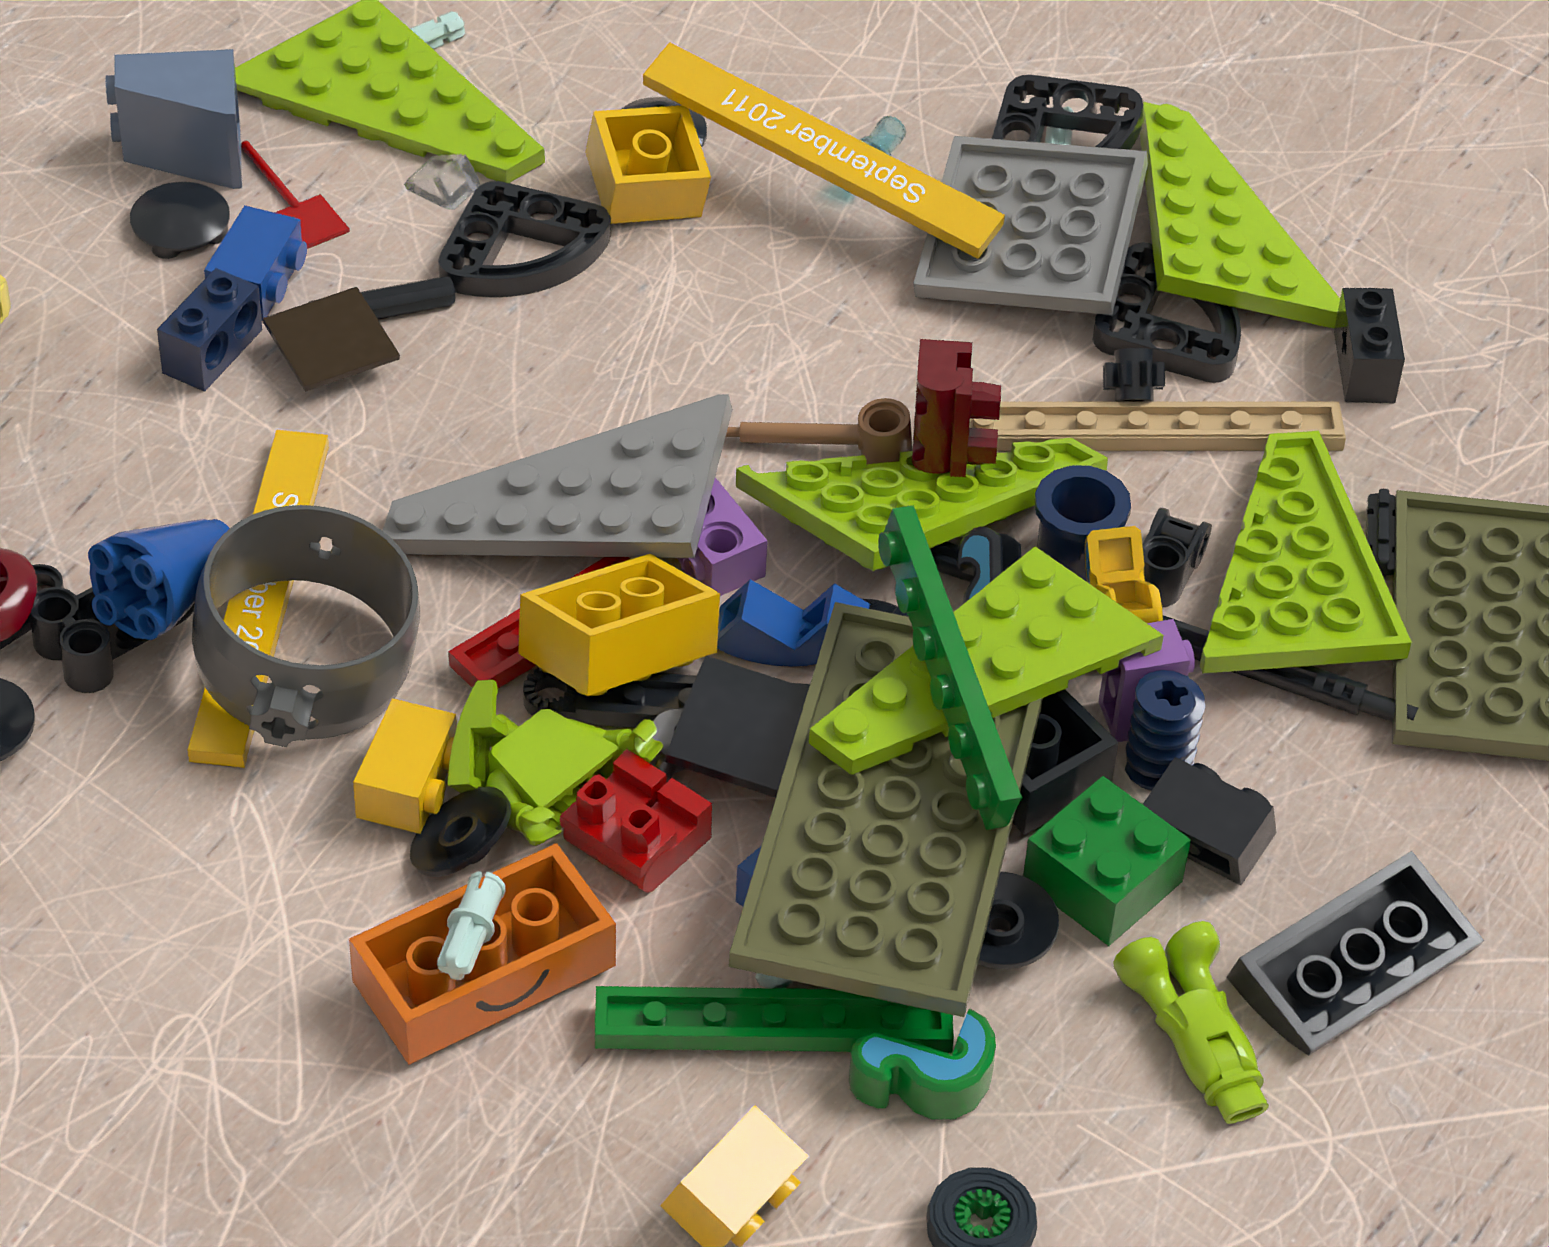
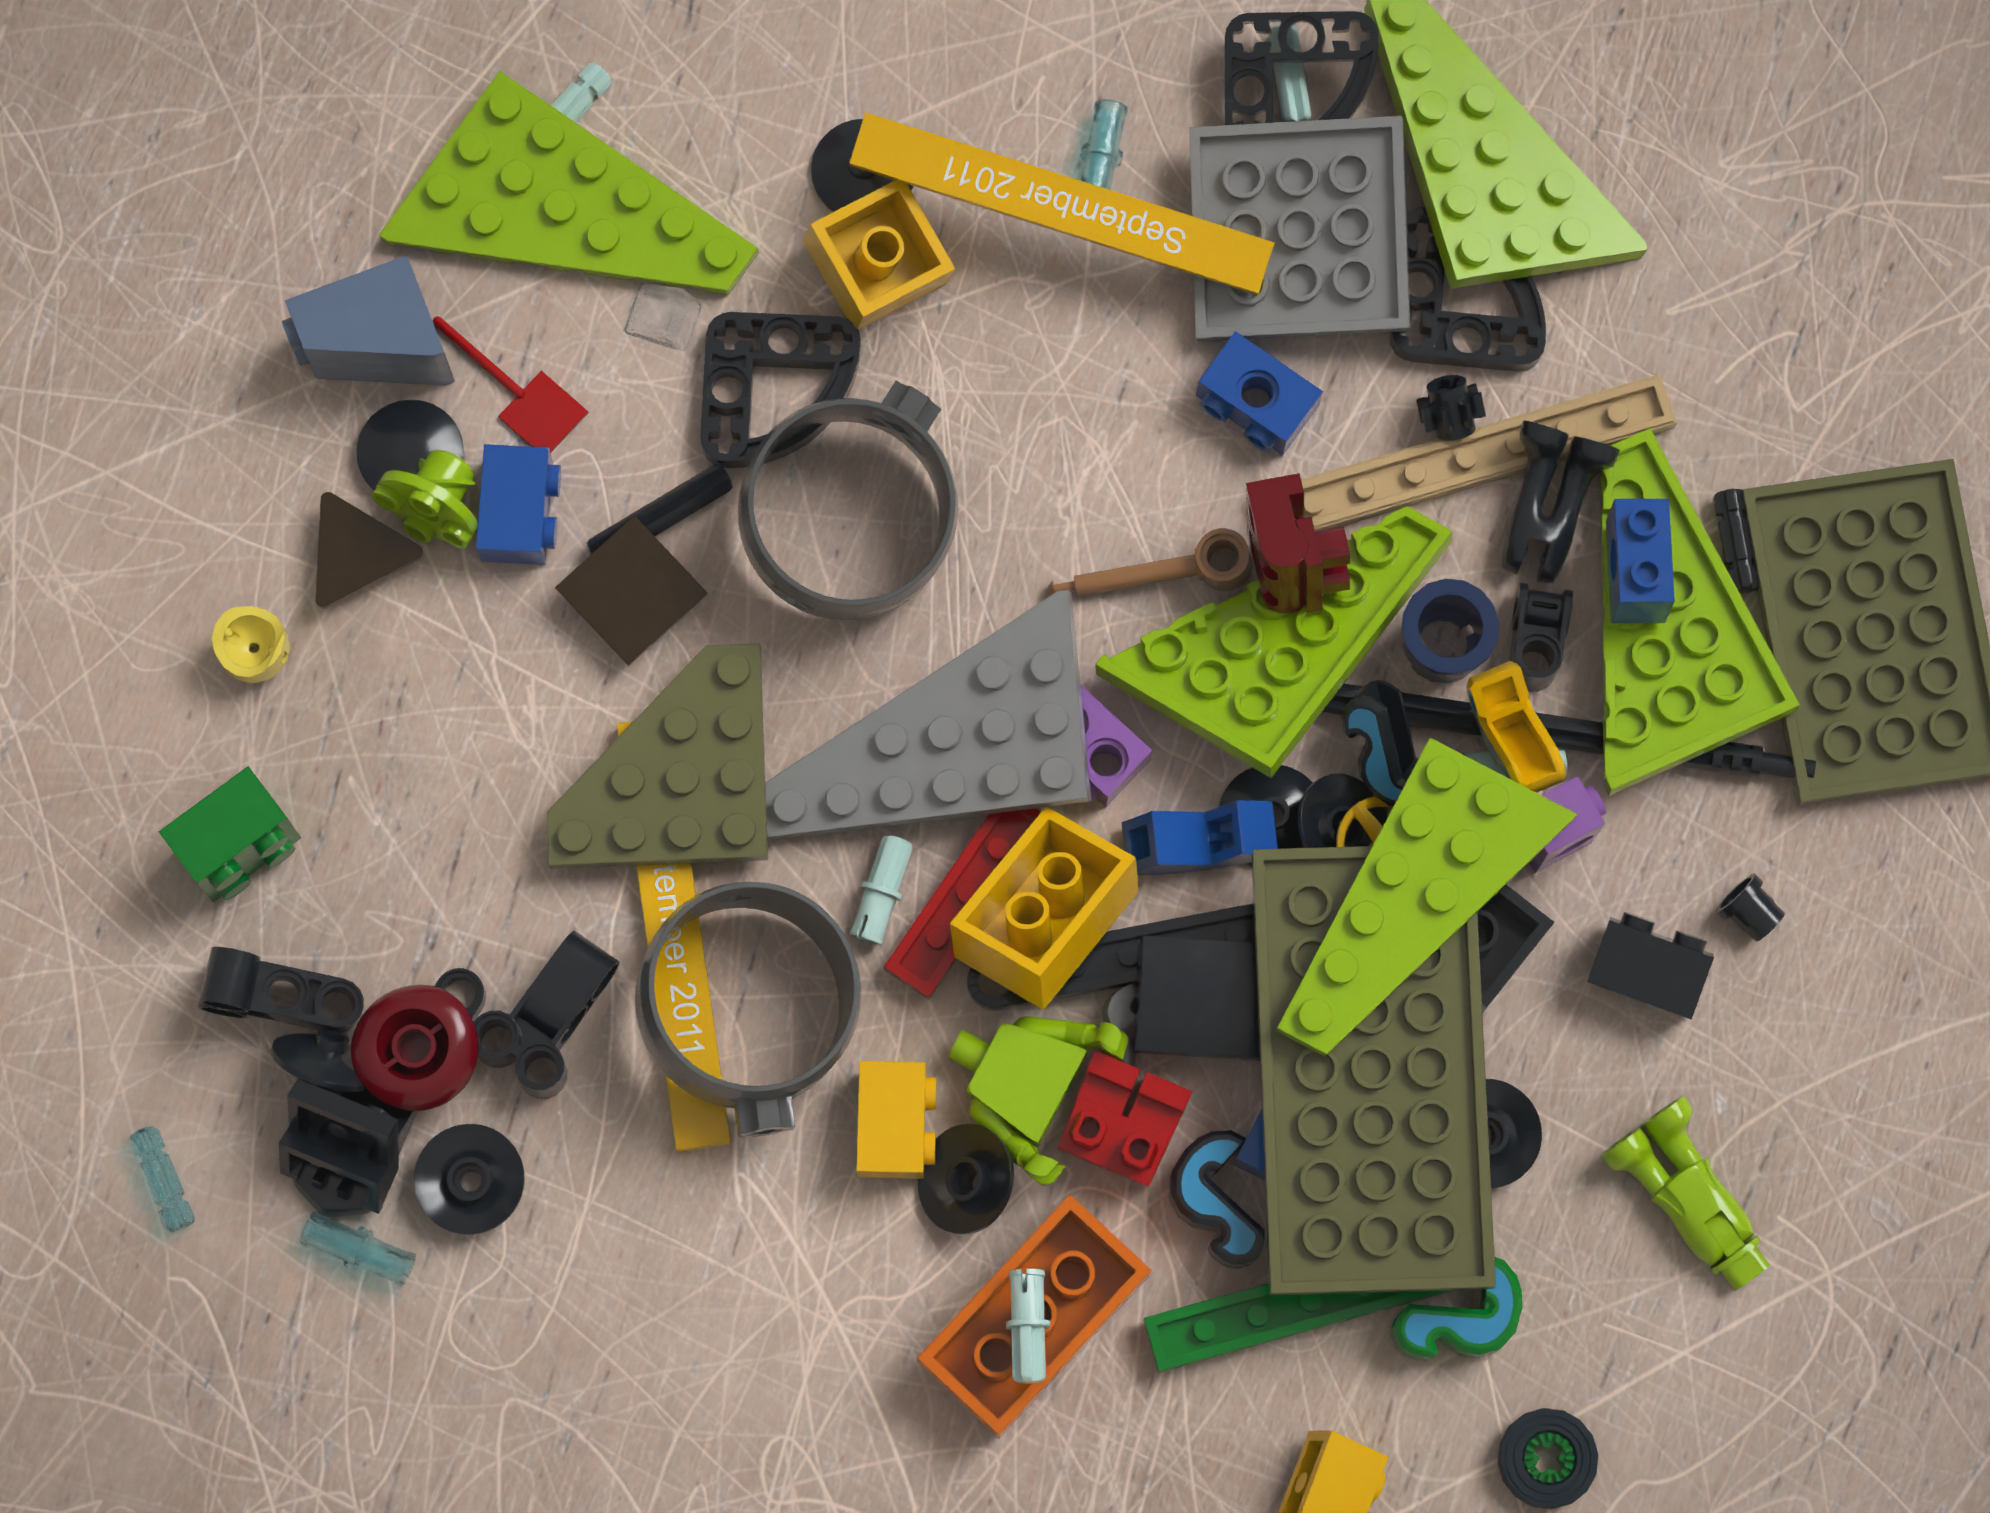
camera: 15 degrees left, 30 degrees up
(98, 260) = (356, 551): none -> dark brown piece
(150, 574) = (594, 987): blue cone -> none
(177, 232) = (431, 499): none -> lime plate
(209, 329) = (505, 614): dark blue brick -> none
(332, 457) = (678, 779): none -> olive plate
(469, 603) = (881, 890): none -> light aqua axle
(471, 741) = (950, 1099): lime slope -> none
(559, 237) = (907, 417): none -> dark grey cylinder
(694, 908) = (1207, 1207): none -> animal
(953, 678) = (1404, 955): green plate -> none
(955, 313) = (1246, 366): none -> blue brick
(1106, 860) = (1566, 1038): green brick -> none
(1163, 725) = (1592, 898): dark blue piece -> none
(1215, 411) = (1583, 462): none -> black piece
(1280, 494) = (1640, 561): none -> blue brick
(1324, 805) = (1751, 908): none -> black piece
(1354, 955) = (1814, 1073): black slope -> none
(1369, 345) = (1677, 294): black brick -> none

